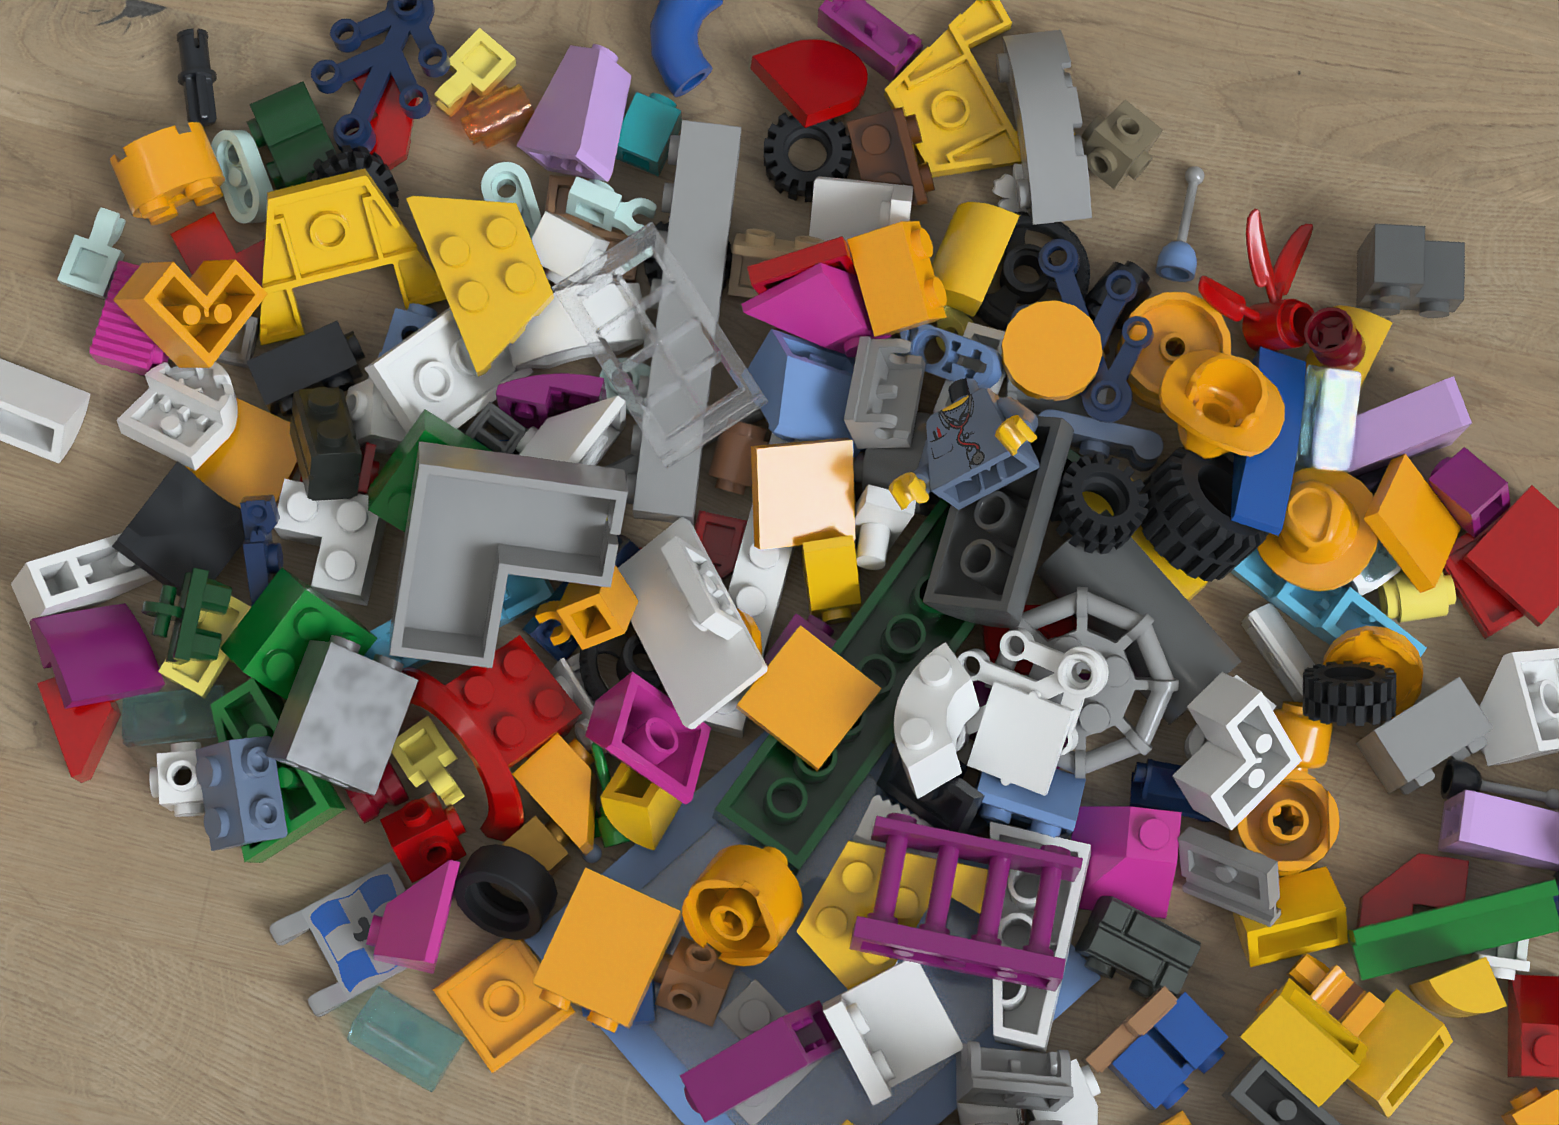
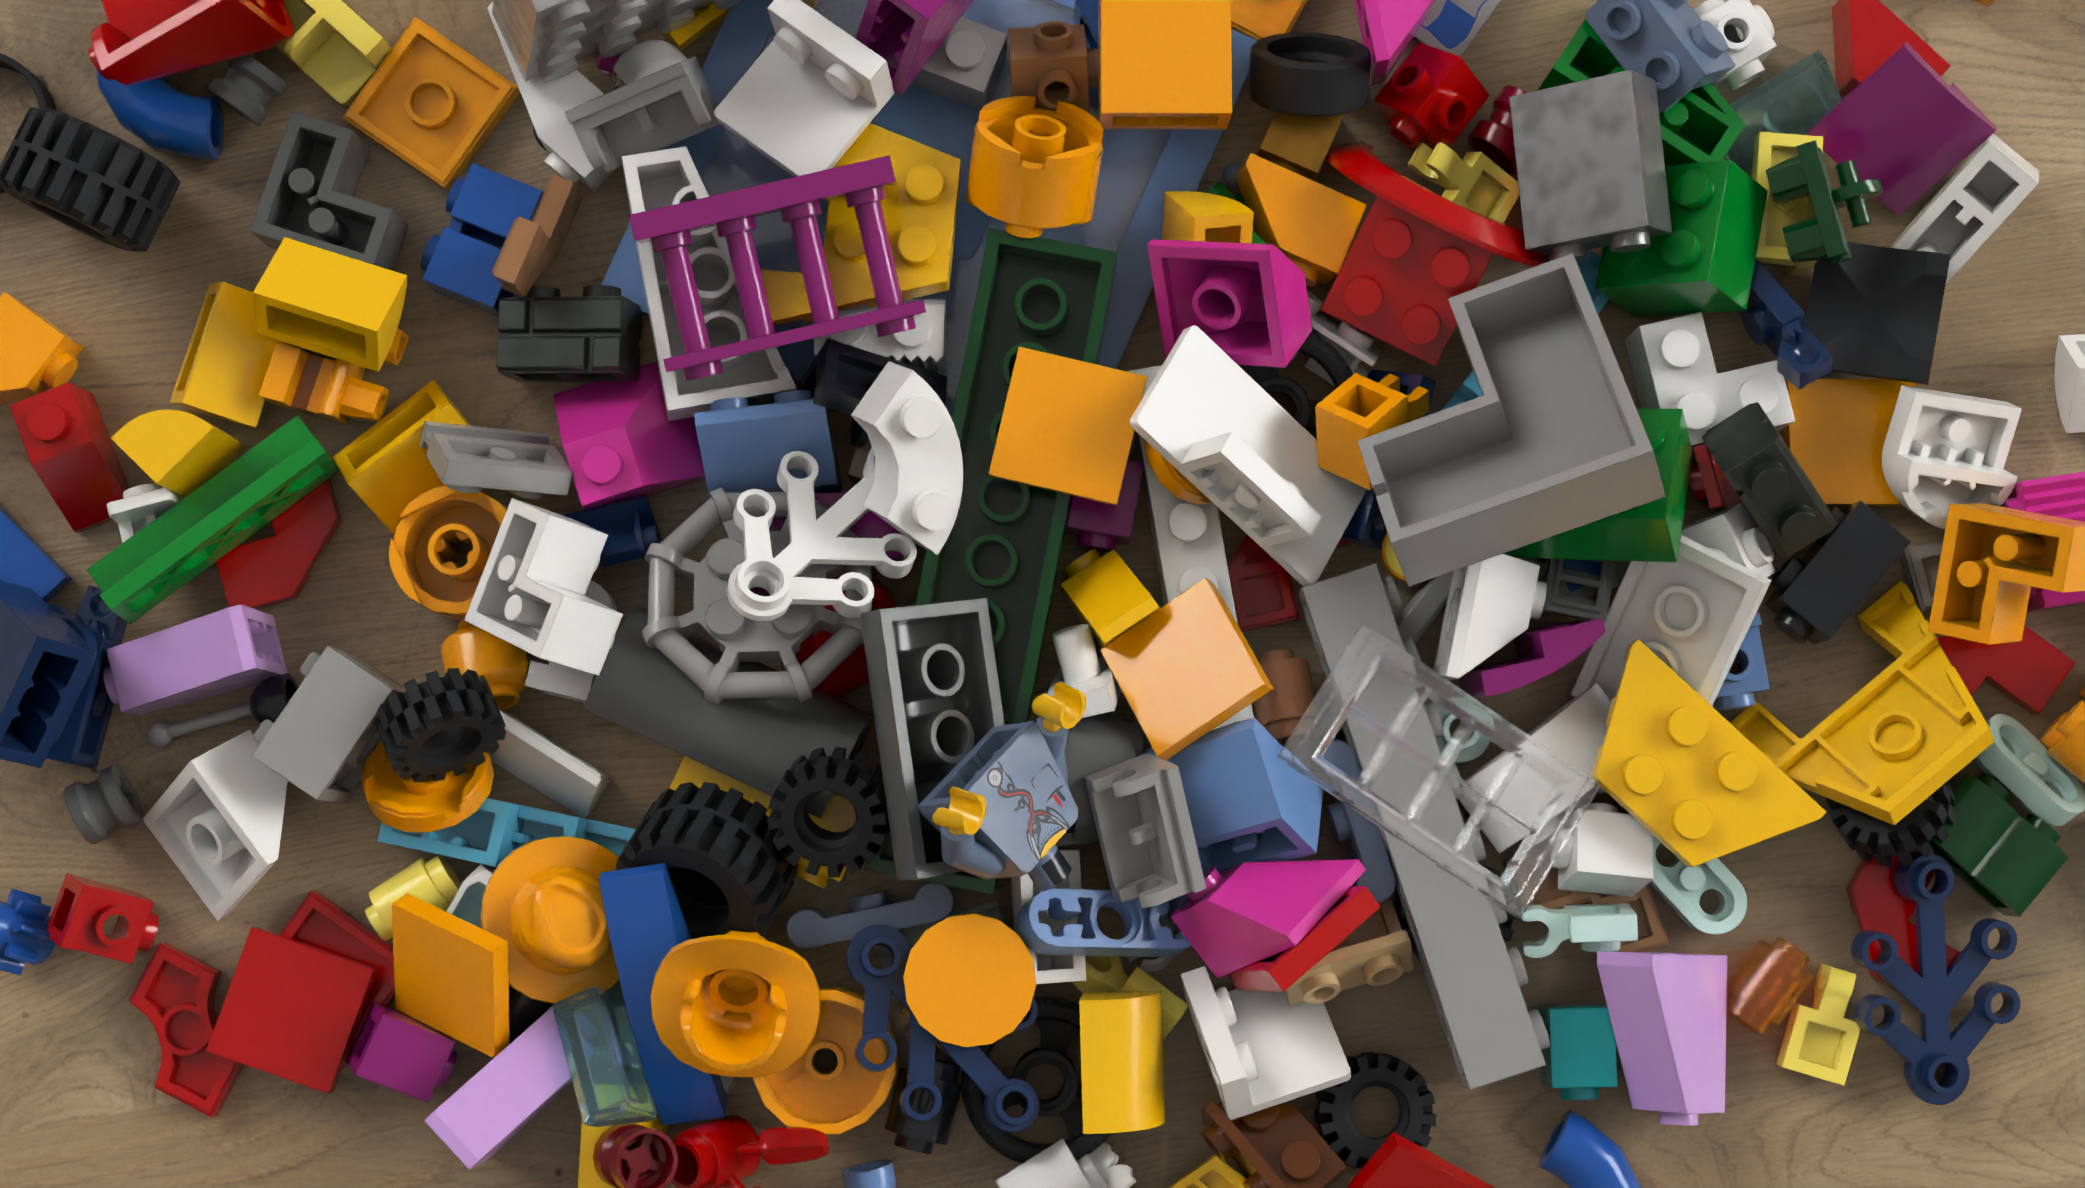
camera: 155 degrees right, 5 degrees up
(732, 322) = (1359, 833): none -> sand blue plate
(898, 277) = (1193, 980): light orange brick -> none
(1020, 737) = (801, 491): white piece -> none

